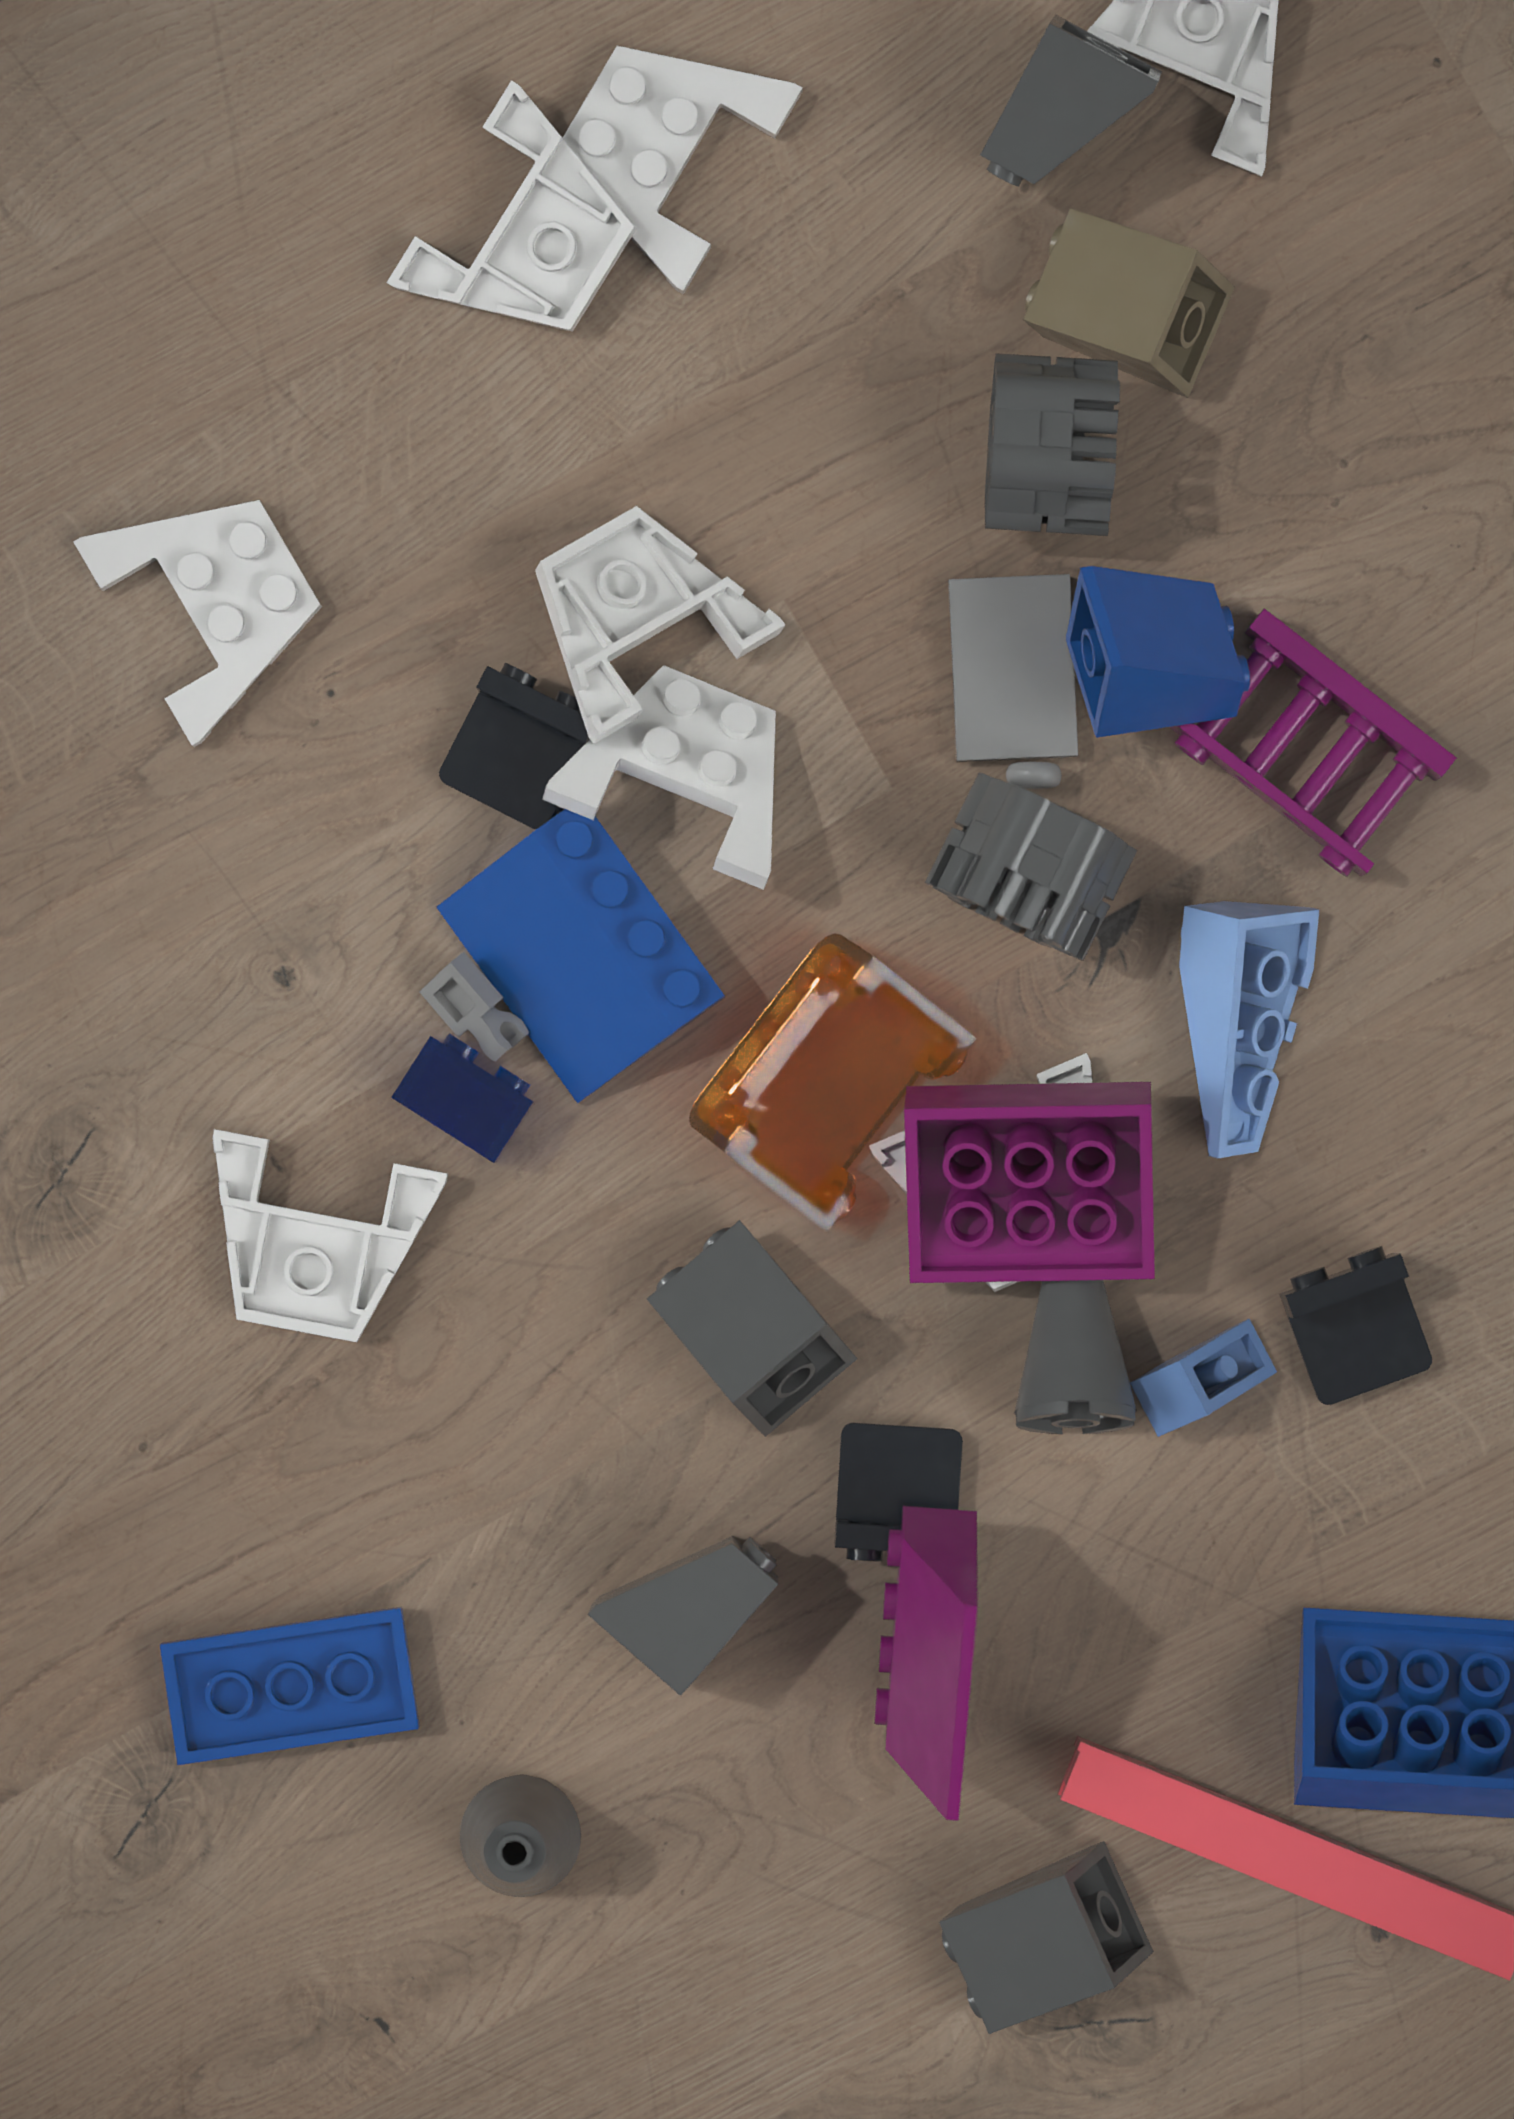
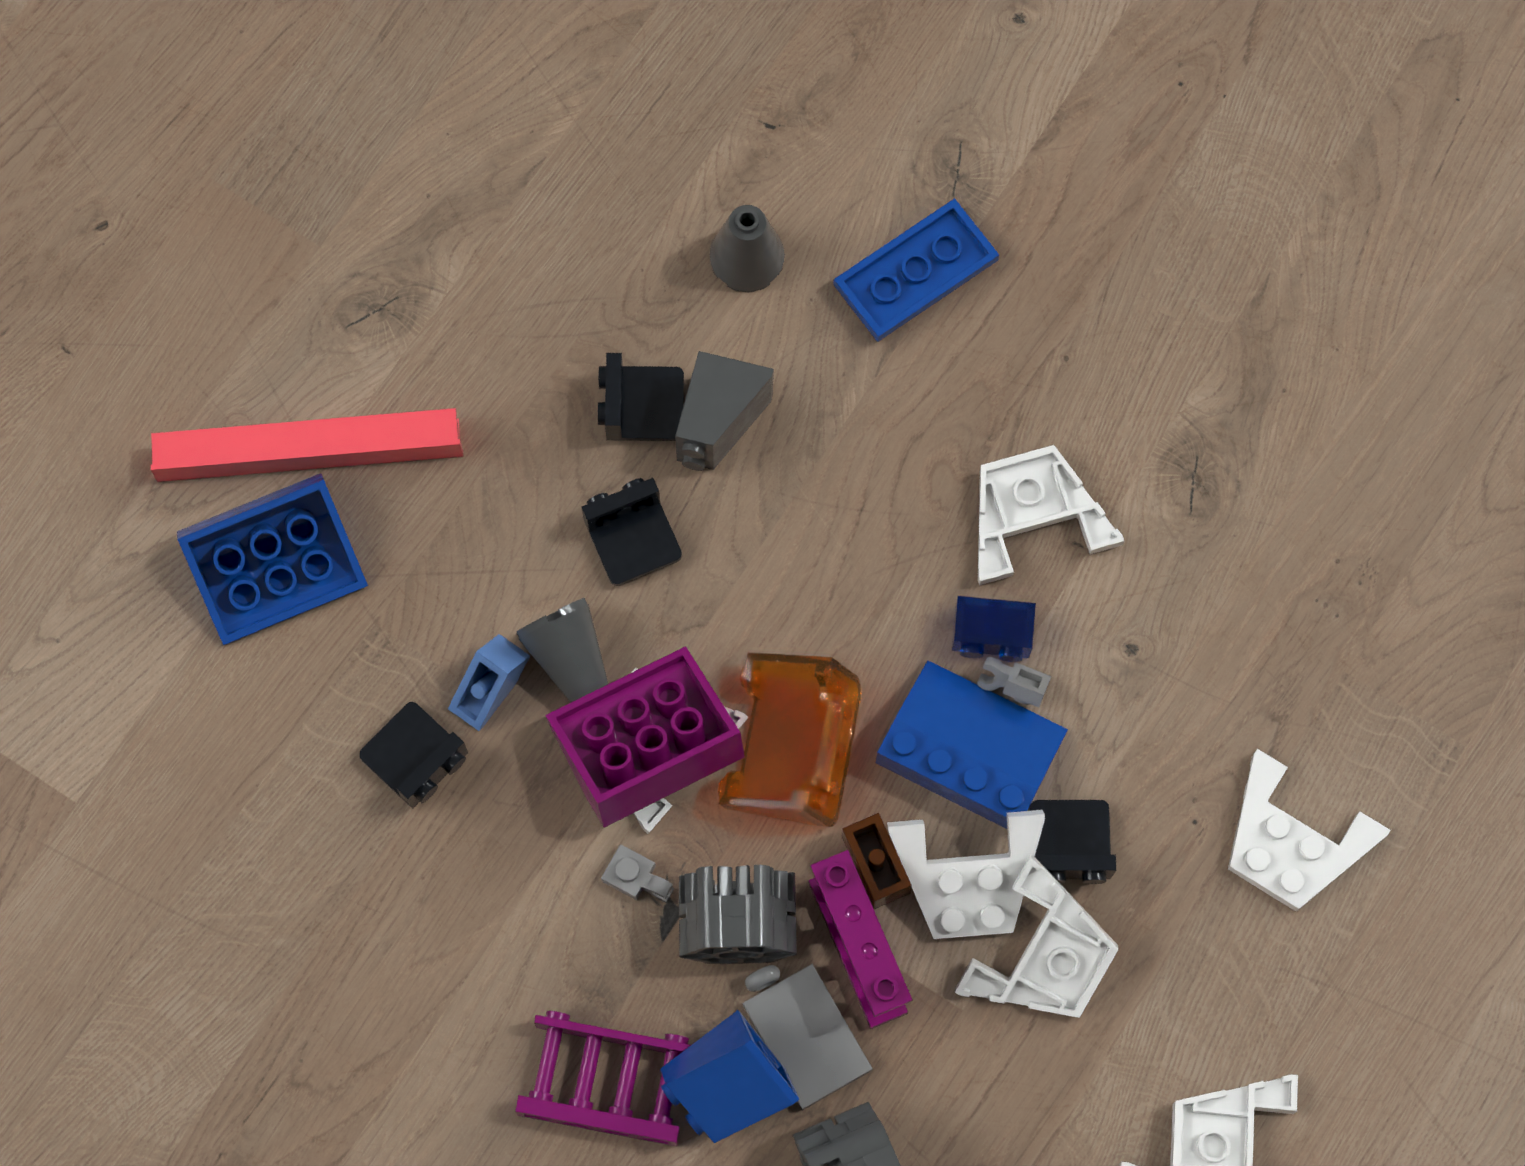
camera: 150 degrees right, 15 degrees down
(750, 1328) = (763, 580): dark grey slope -> none
(787, 1684) = (640, 401): none -> black bracket
(801, 850) = (876, 861): none -> reddish brown brick
(884, 748) = (859, 939): none -> magenta fence
(930, 1649) = (570, 446): magenta slope -> none
(1046, 1939) = (425, 336): dark grey slope -> none
(1138, 1008) = (633, 873): none -> light grey plate
(1238, 990) = (577, 911): light blue wedge -> none

